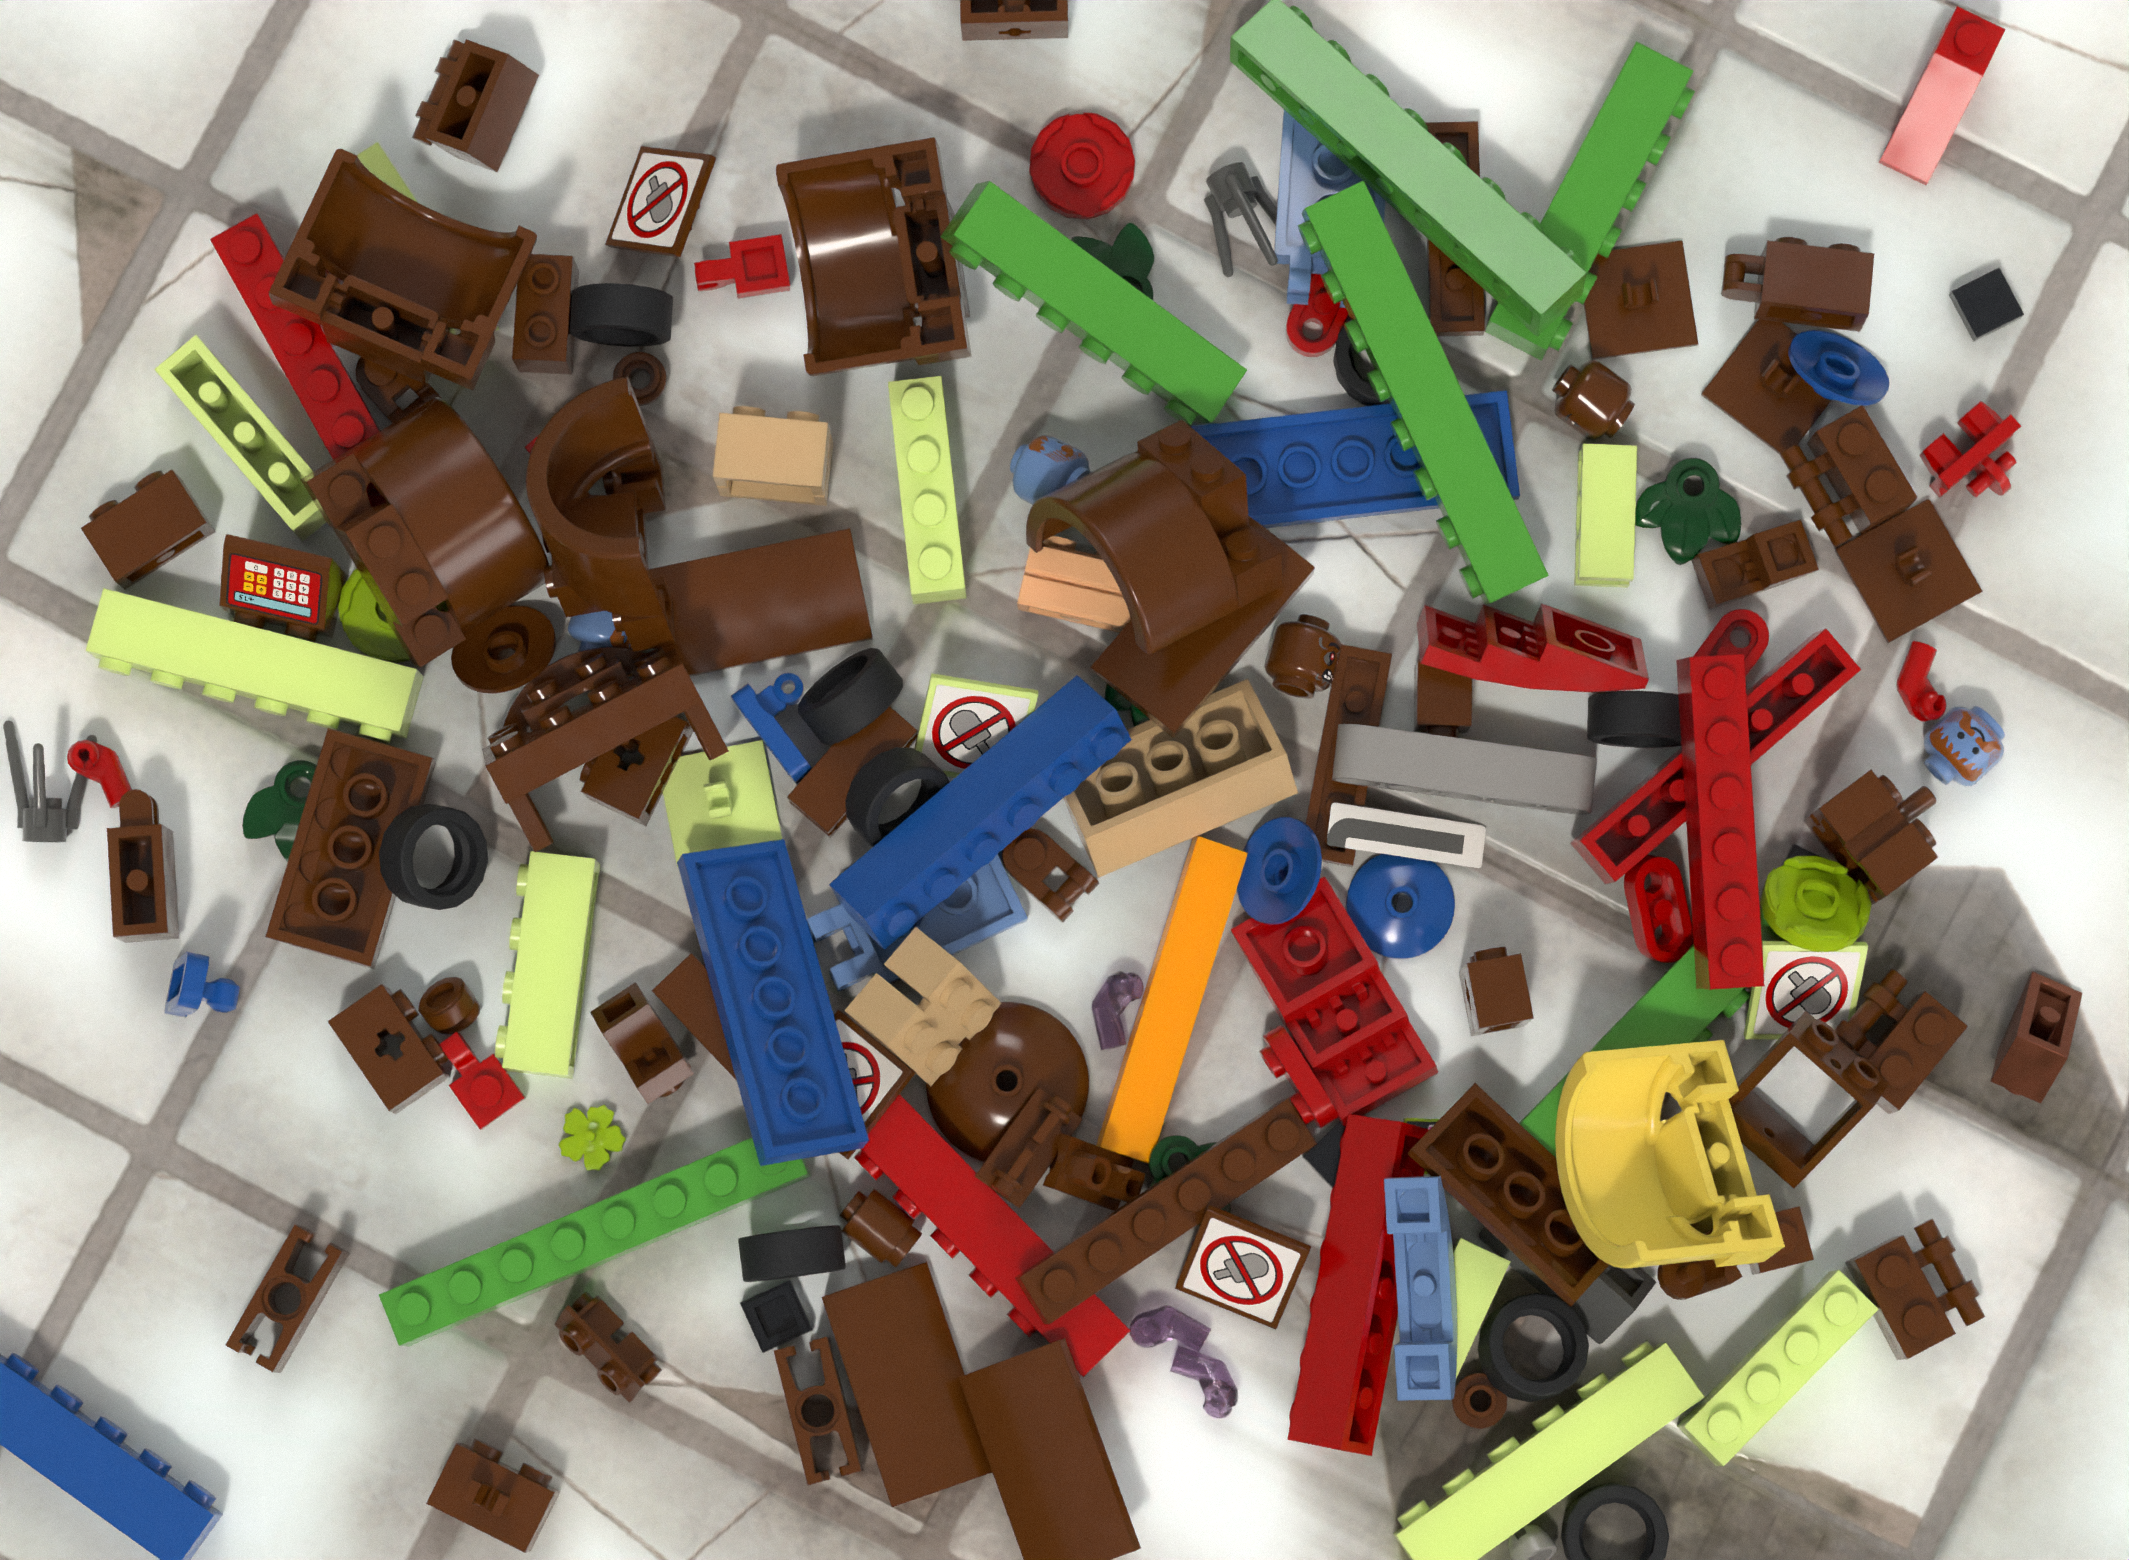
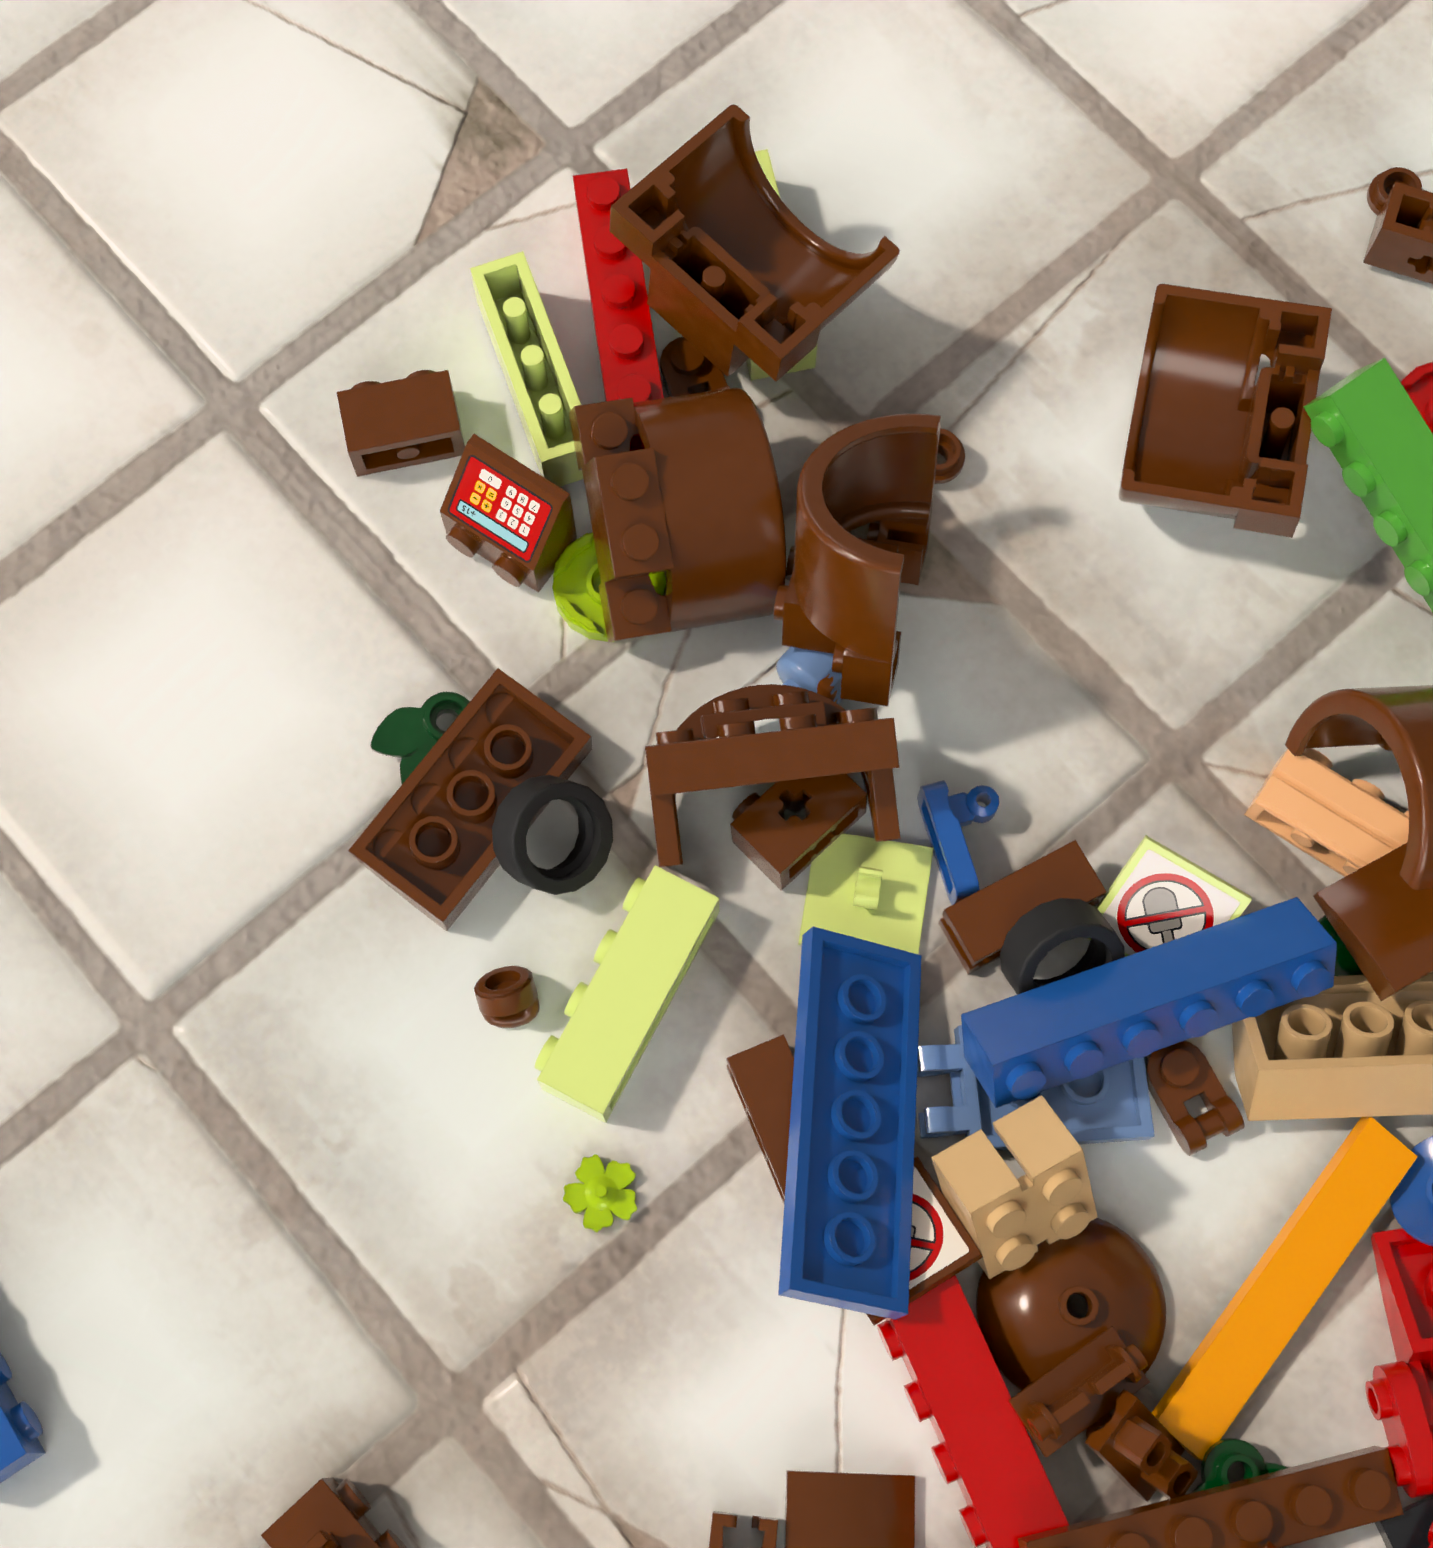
camera: 20 degrees right, 10 degrees down
(41, 816) = (181, 654): dark grey plant -> none
(101, 766) = (261, 629): red arm -> none
(142, 872) = (251, 742): reddish brown brick -> none
(189, 987) = (278, 895): blue piece -> none
(254, 664) = (451, 585): yellowish green brick -> none
(264, 1303) = (184, 1240): reddish brown piece -> none
(363, 1032) = (407, 988): reddish brown brick -> none
(475, 103) = (874, 153): reddish brown brick -> none
(484, 1086) = (510, 1094): red plate -> none
(505, 650) = (705, 660): reddish brown dish -> none
(544, 314) = (868, 359): reddish brown brick -> none
(584, 1240) = (551, 1302): bright green brick -> none
(589, 1334) = (535, 1457): reddish brown hinge -> none
(621, 315) = (945, 379): black tyre -> none
(642, 1043) = (695, 1112): reddish brown brick -> none
(660, 201) = (1021, 298): piece -> none
(755, 267) = (1088, 390): red plate -> none
(767, 602) = (993, 712): reddish brown slope -> none
(773, 456) = (1049, 567): tan piece -> none
(776, 1316) = (727, 1472): black tile -> none
(792, 1253) = (773, 1408): black tyre -> none
(850, 696) = (1047, 831): black tyre -> none
(879, 1227) = (878, 1416): reddish brown brick -> none
(927, 490) = (1194, 660): yellowish green brick -> none
(1046, 467) = (1319, 673): medium blue head -> none
(1110, 1003) = (1214, 1264): clear purple arm -> none

